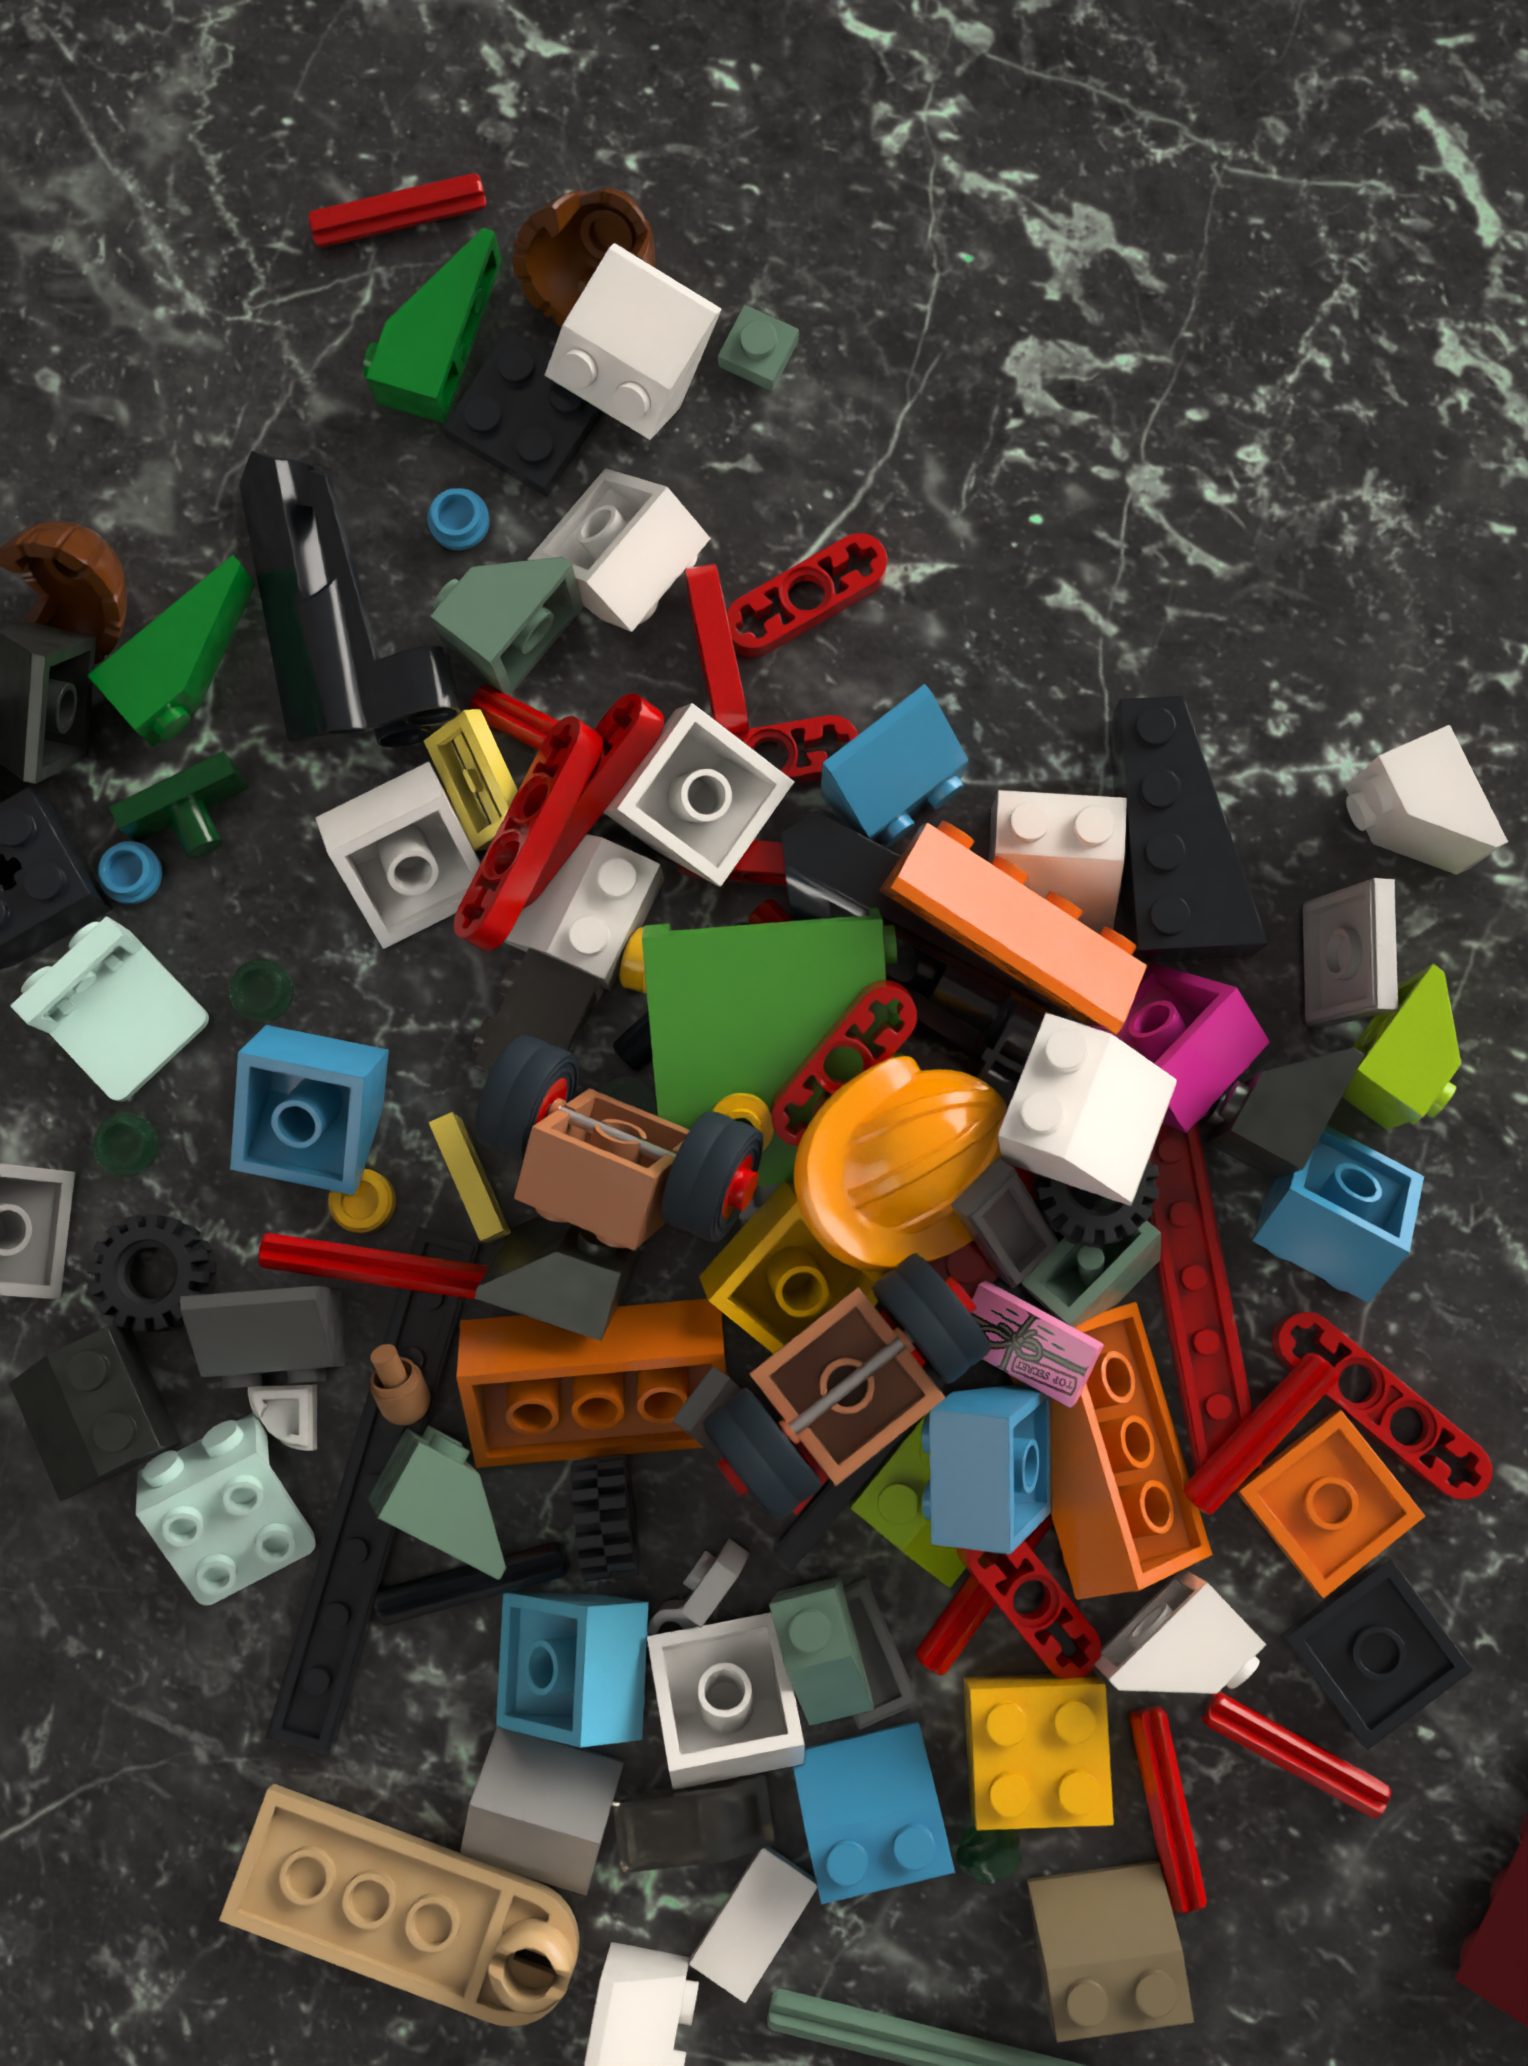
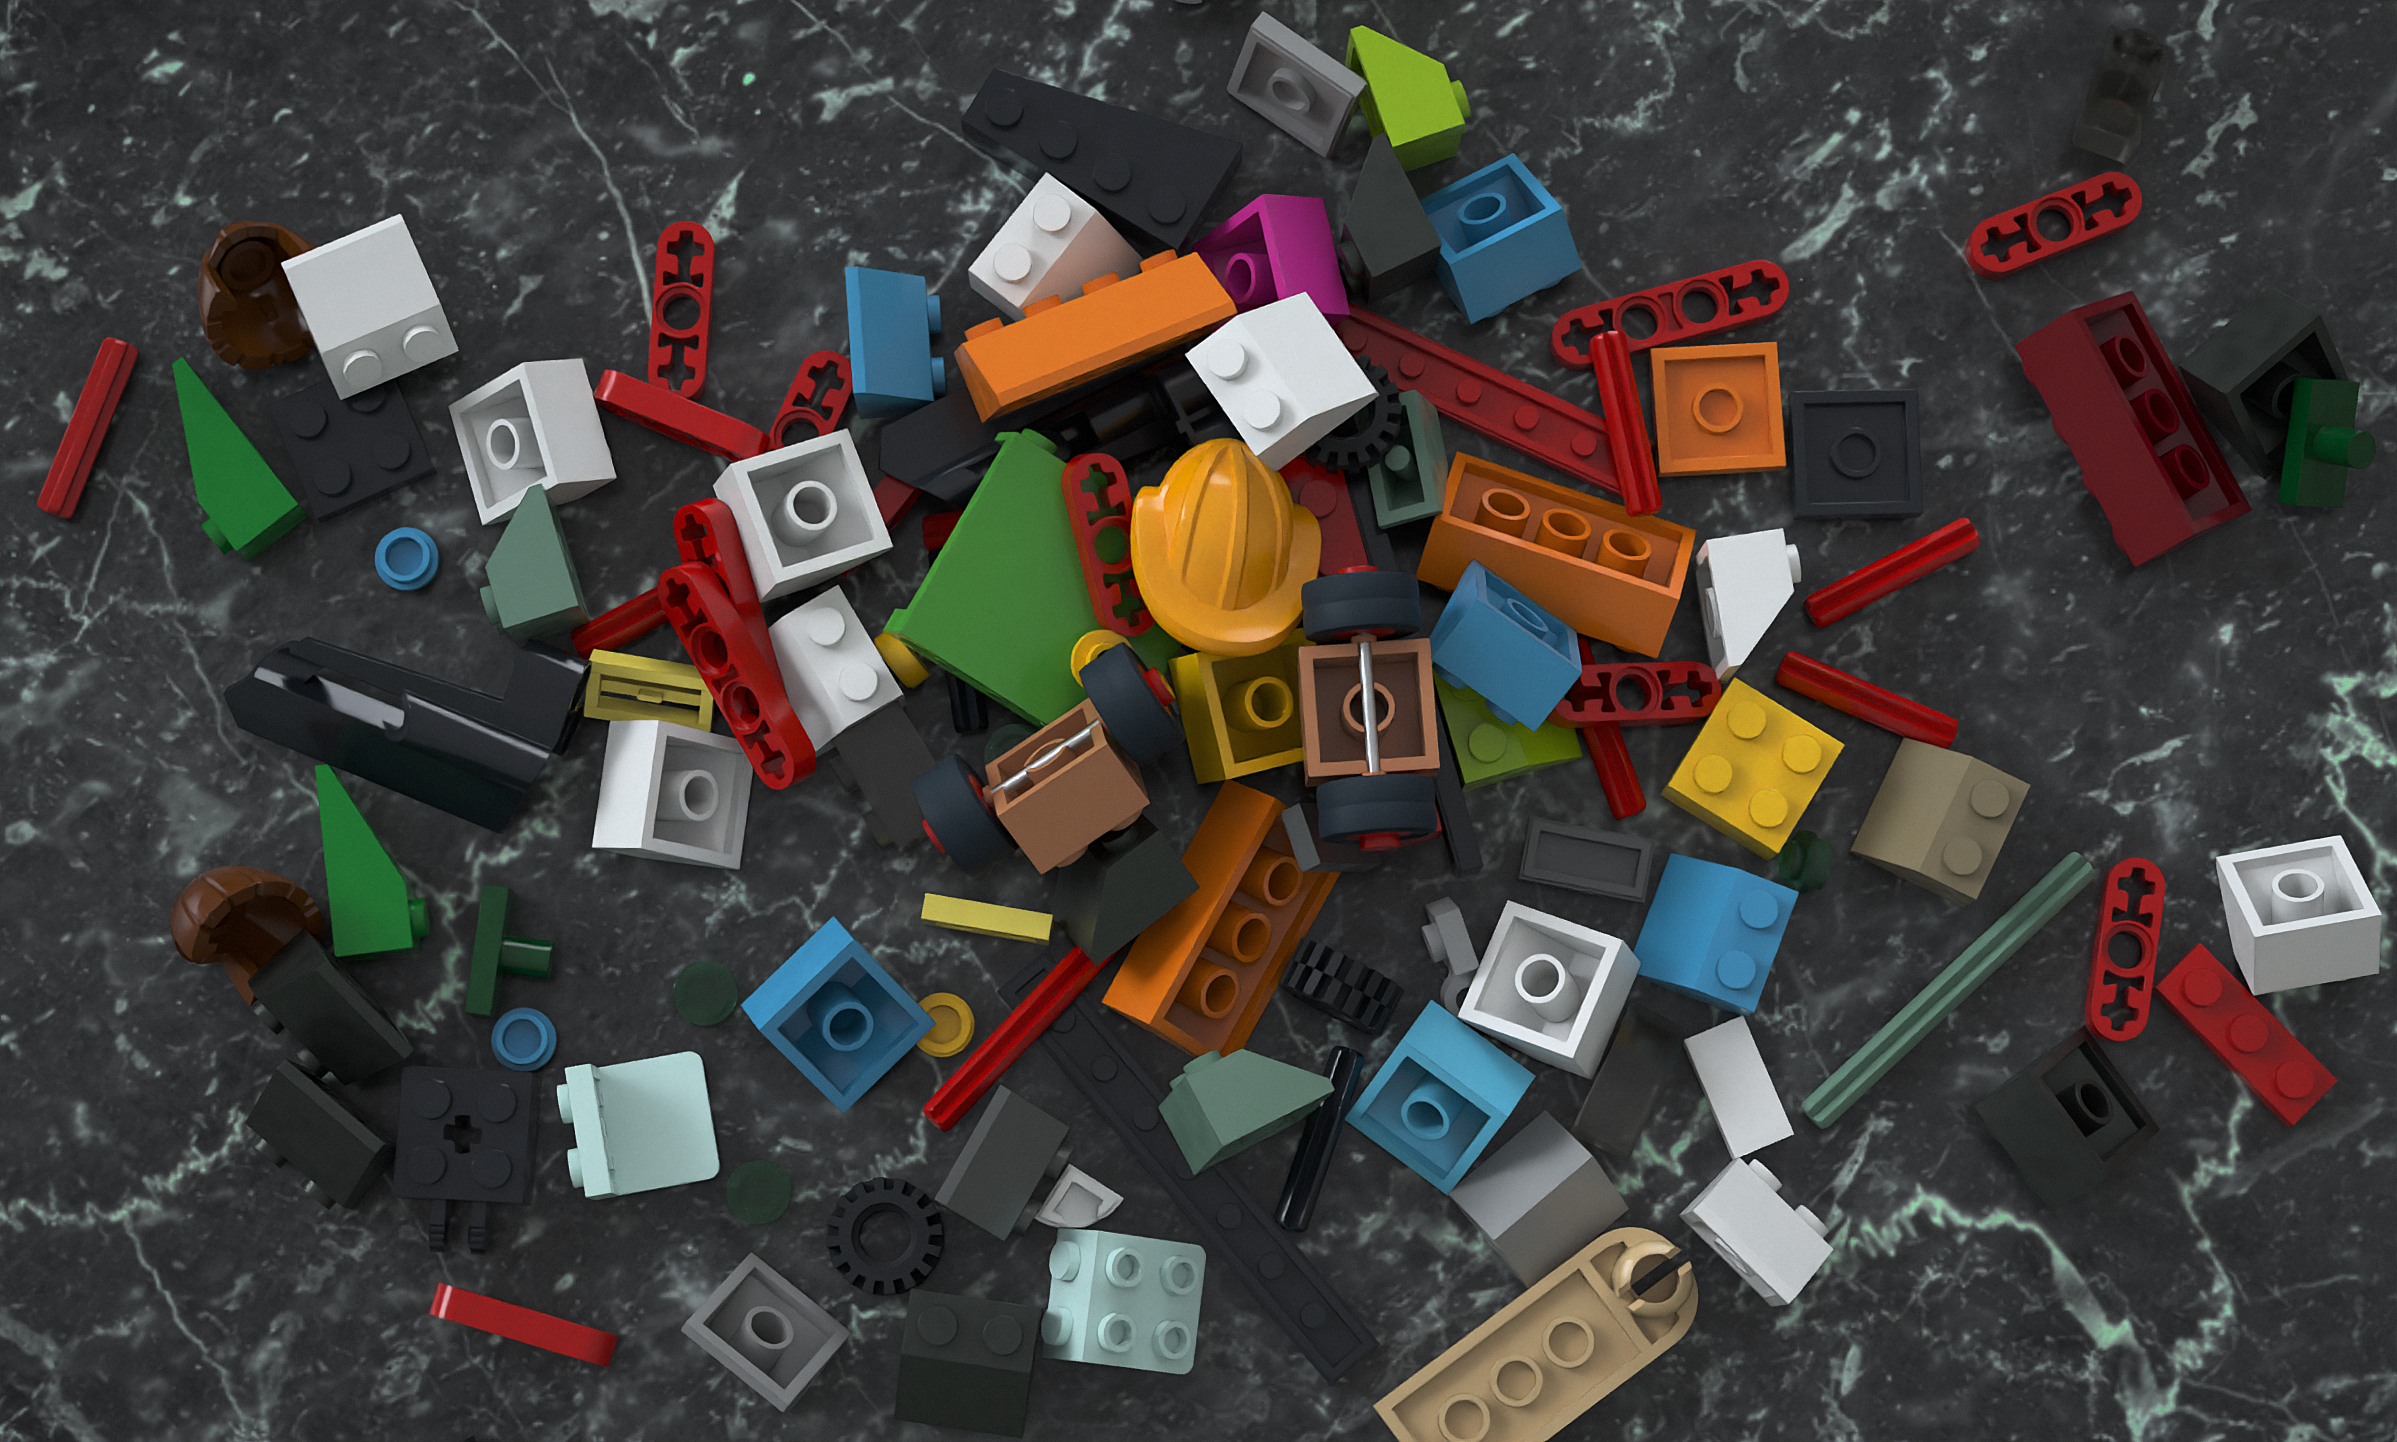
camera: 65 degrees left, 0 degrees up
(398, 1387) = (1122, 1086): medium nougat cylinder -> none
(758, 347) = (434, 205): sand green plate -> none
(821, 1650) = (1564, 884): sand green slope -> none
(1005, 1222) = (1325, 503): dark grey tile -> none
(1034, 1344) = (1438, 546): bright pink tile -> none

